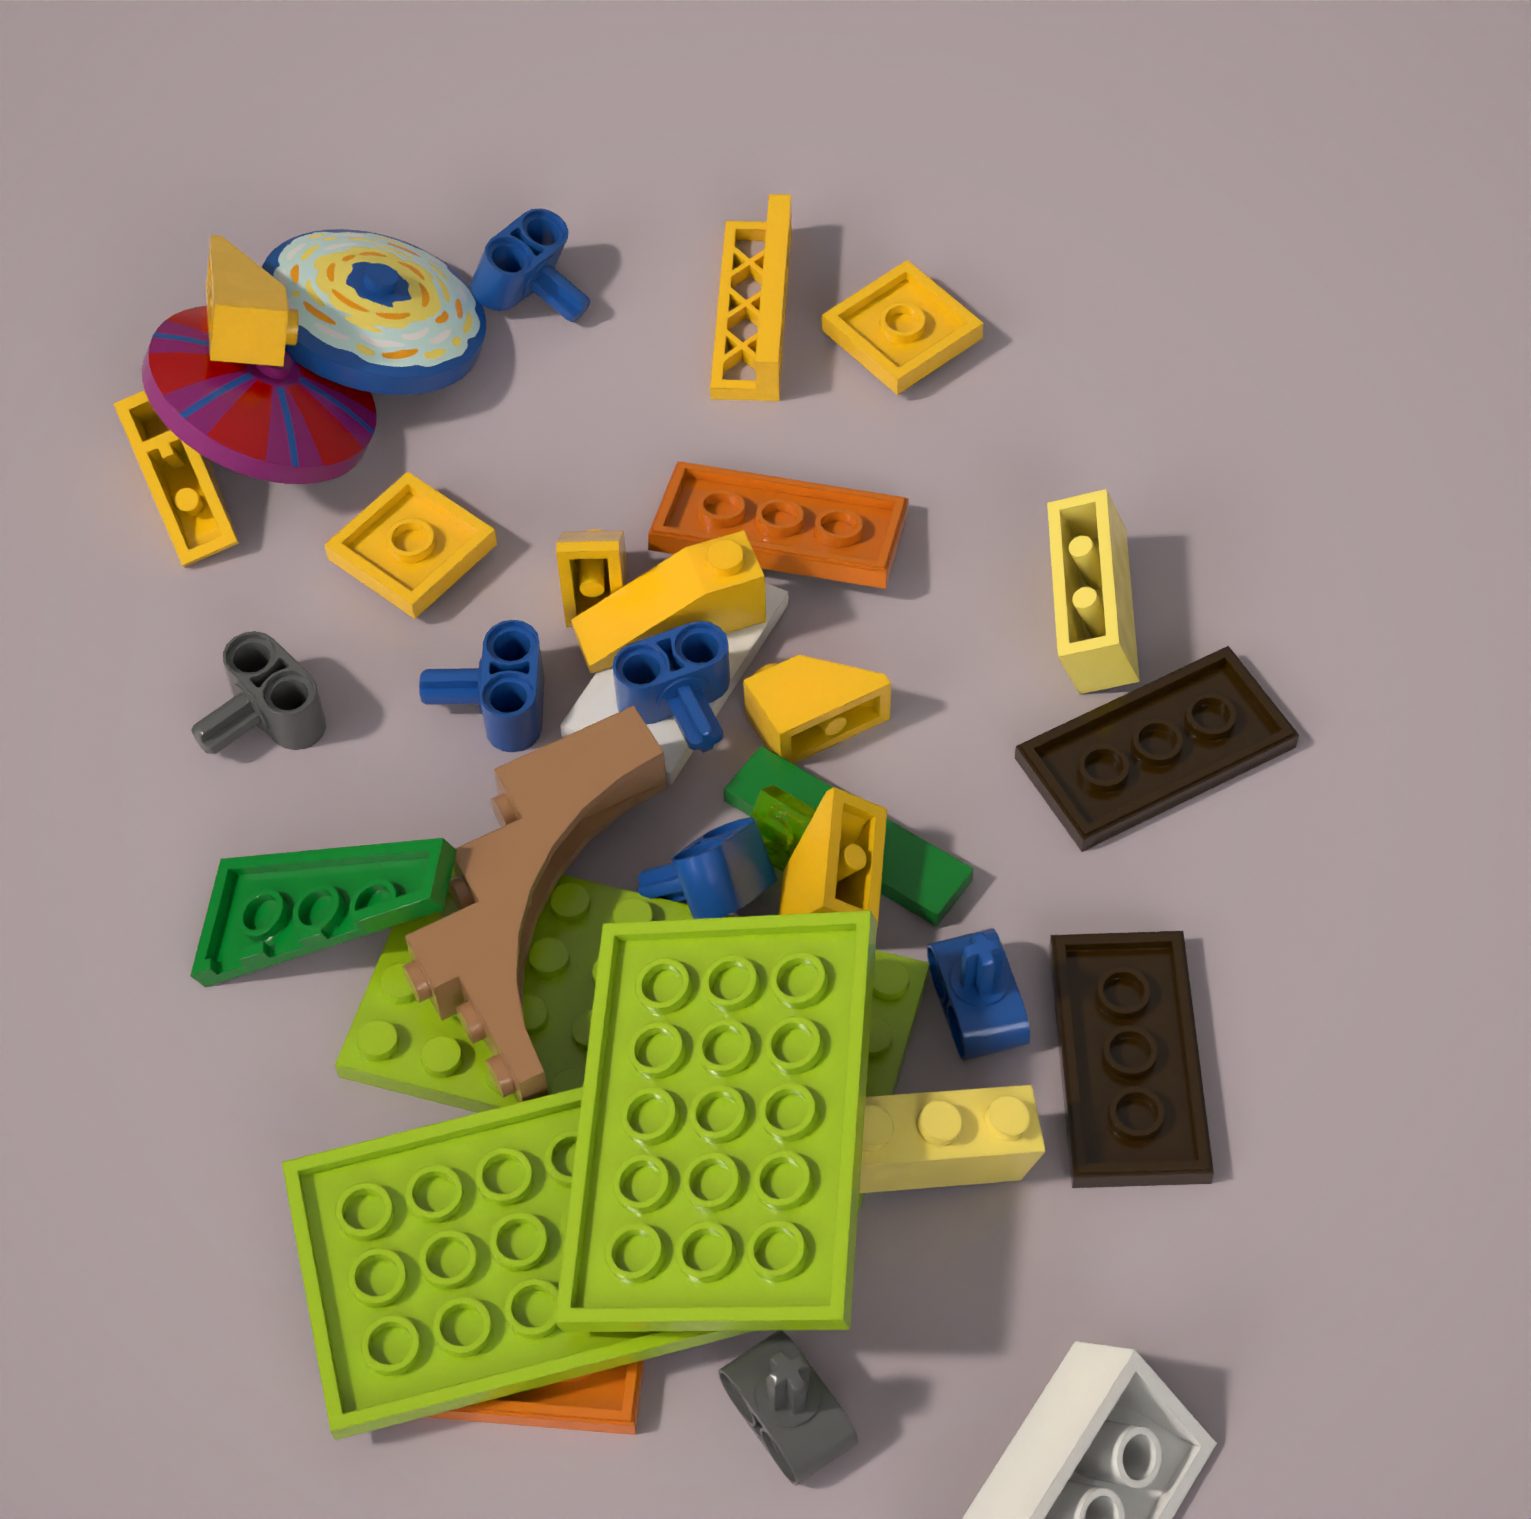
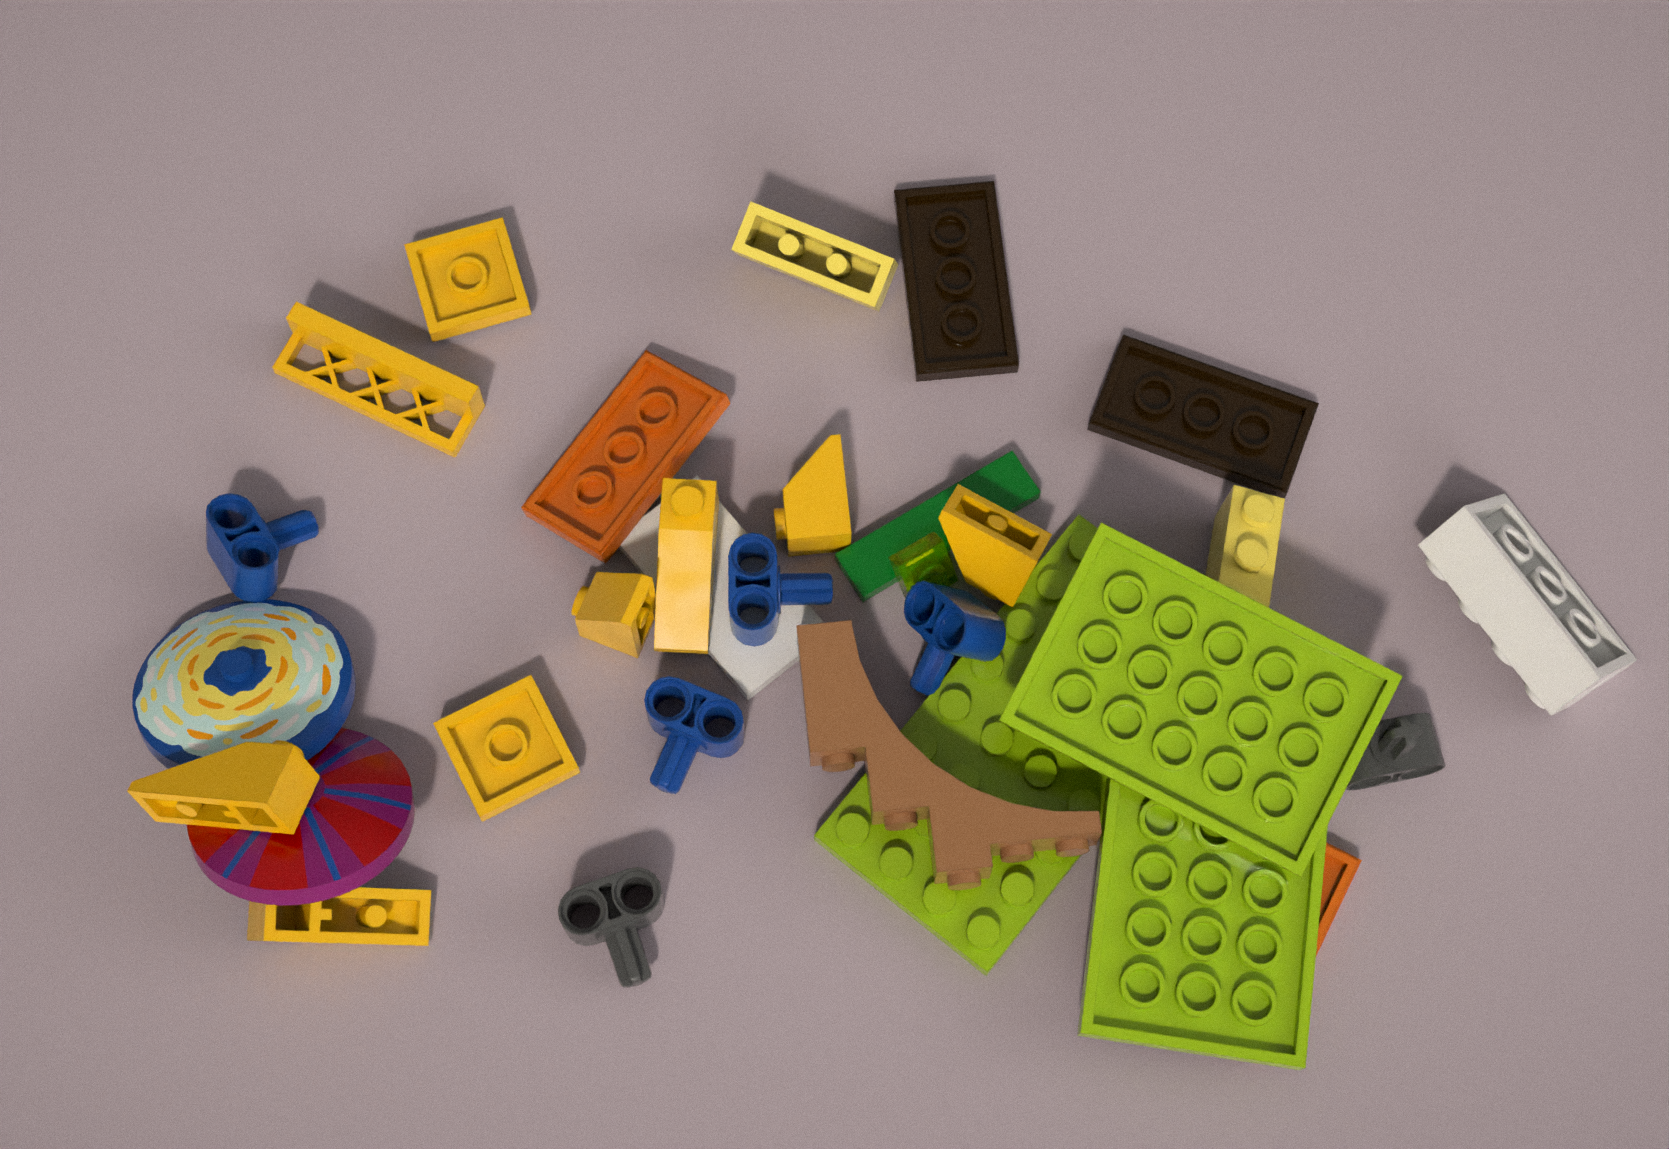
camera: 70 degrees left, 15 degrees up
(314, 899) = (845, 948): green wing -> none
(978, 994) = (1119, 491): blue beam -> none

